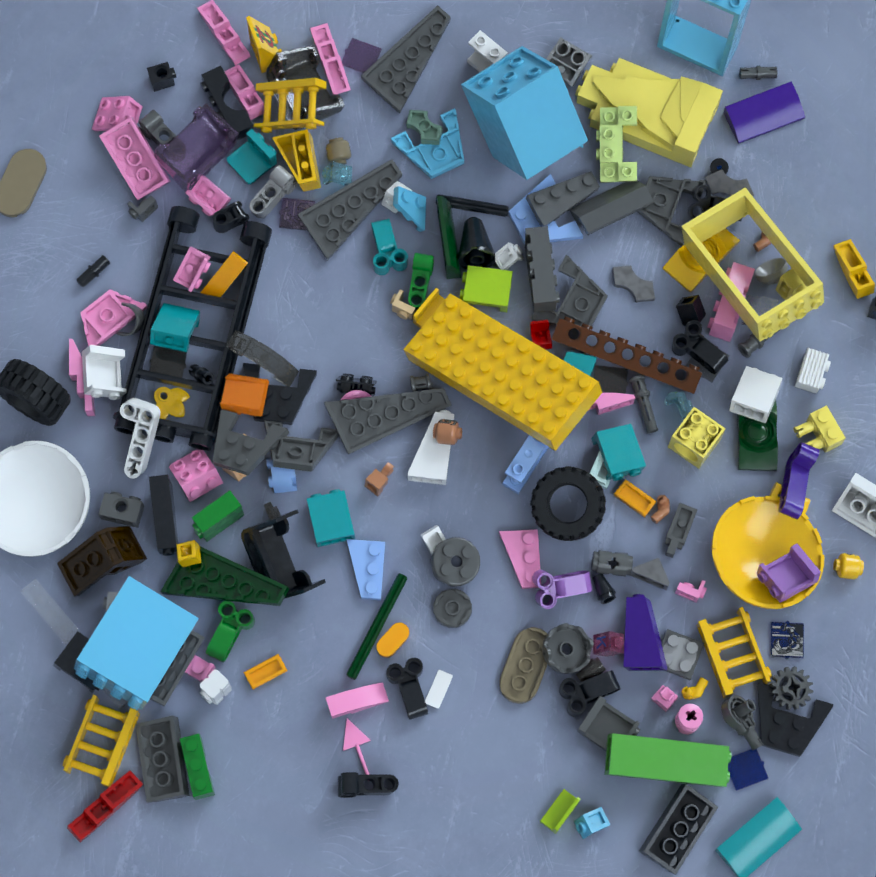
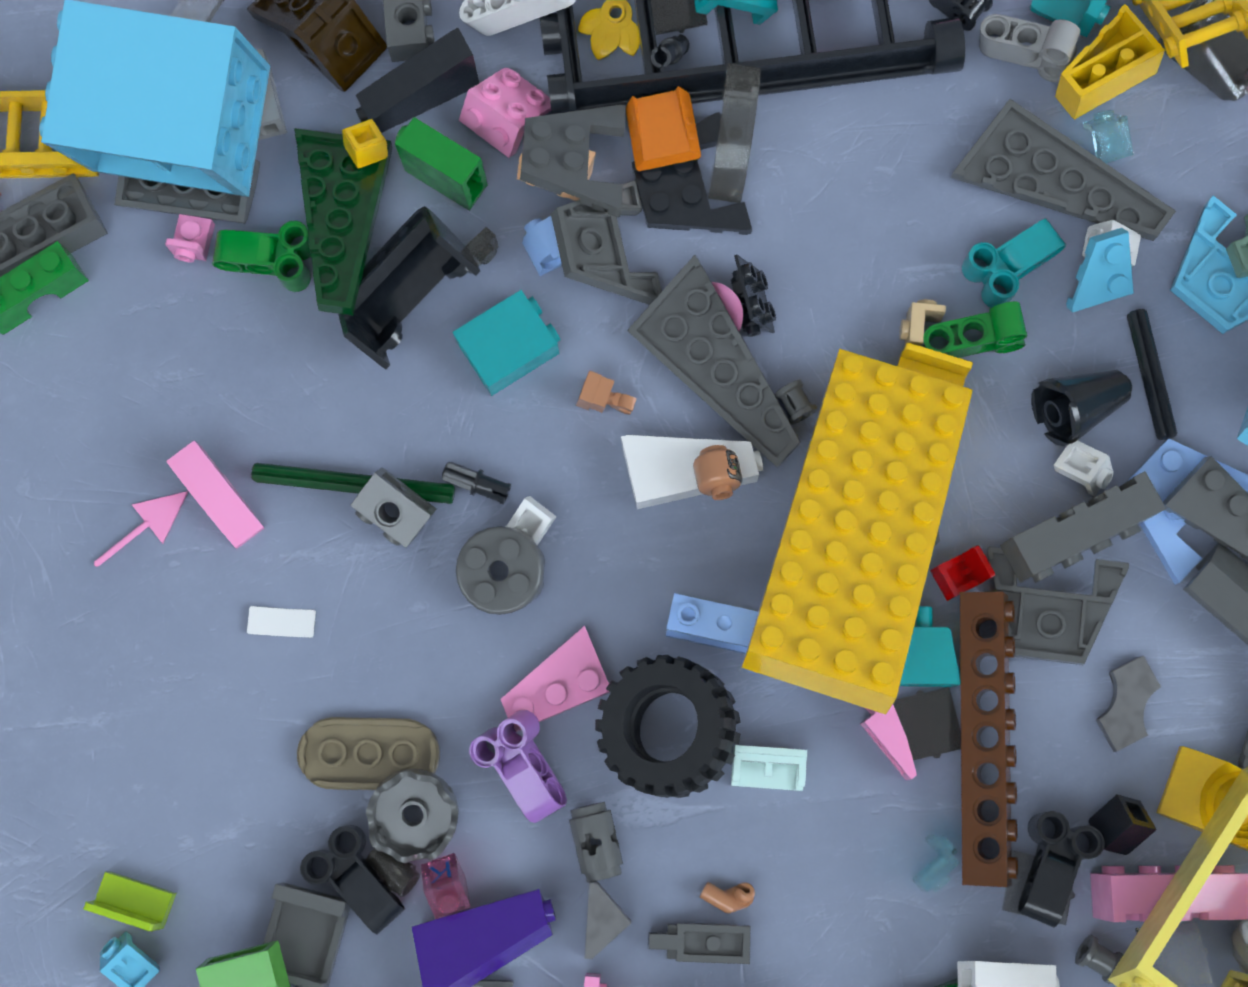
camera: 75 degrees right, 5 degrees up
(215, 687) = (159, 264): white brick -> none
(225, 275) = (851, 22): light orange tile -> none
(265, 671) = (220, 336): light orange tile -> none
(289, 213) = (1014, 85): clear purple piece -> none
(338, 150) = (1151, 121): dark tan head -> none
(352, 784) = (65, 537): black piece -> none
(368, 566) = (449, 433): light blue wing -> none
(390, 607) = (413, 509): none -> brick
(392, 640) = (336, 517): light orange tile -> none
(401, 560) = (476, 482): none -> black axle
(410, 688) = (263, 572): black piece -> none
(448, 238) = (1074, 351): dark green slope -> none
(452, 608) = (426, 595): dark grey tile -> none
(487, 287) = (1011, 450): lime panel -> none
(604, 590) = (545, 842): black cone -> none
(620, 452) = (802, 786): teal panel -> none
(634, 498) = (732, 842): light orange tile -> none
(651, 426) = (923, 784): dark grey pin -> none
(696, 437) = (881, 918): light yellow brick -> none

